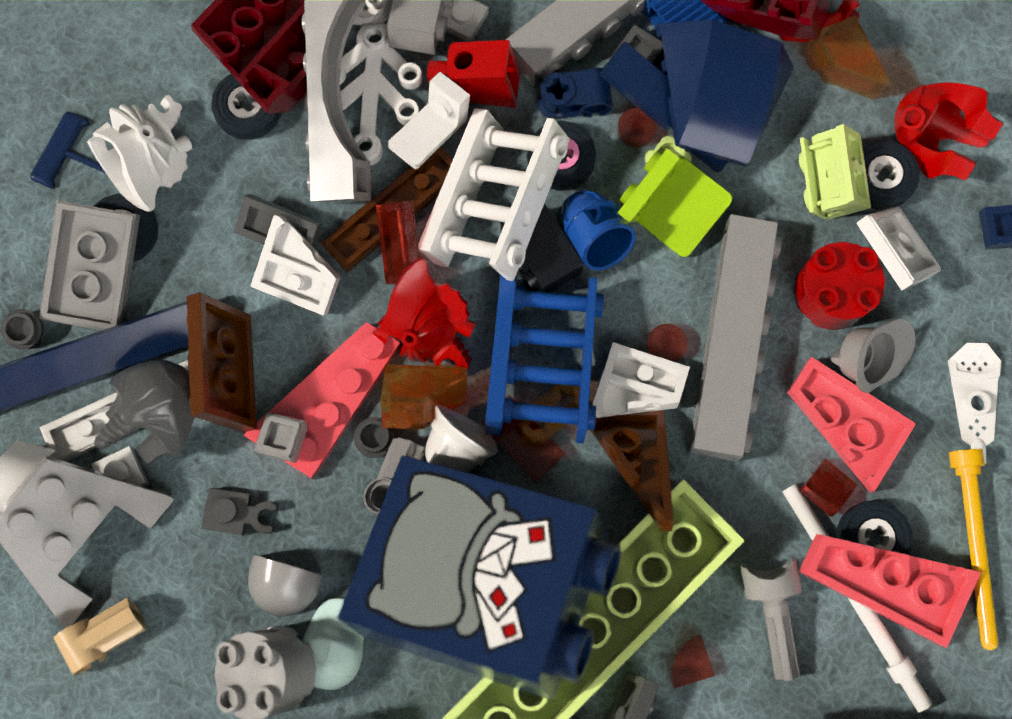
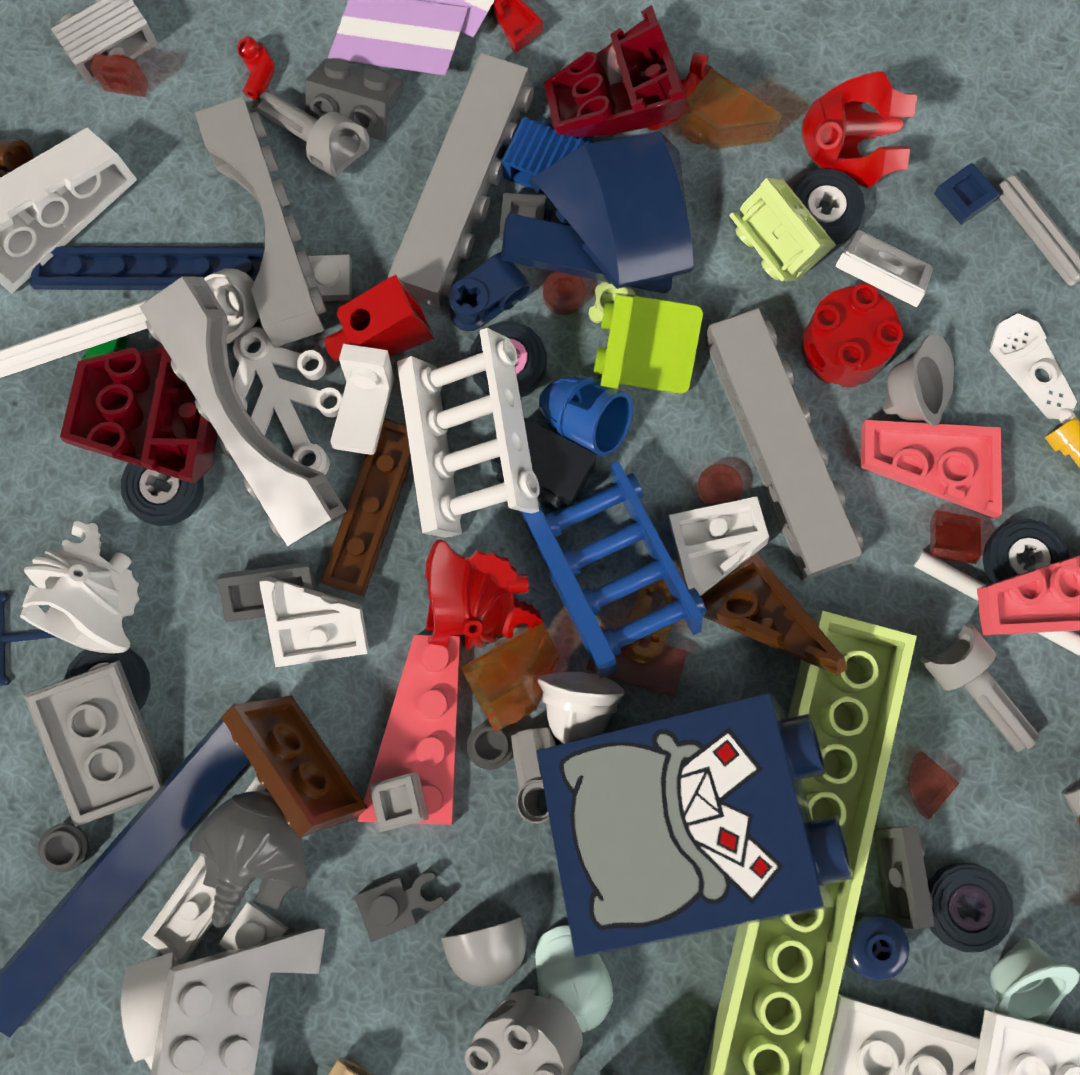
camera: 25 degrees left, 0 degrees up
(397, 238) = (398, 534): clear red tile -> none

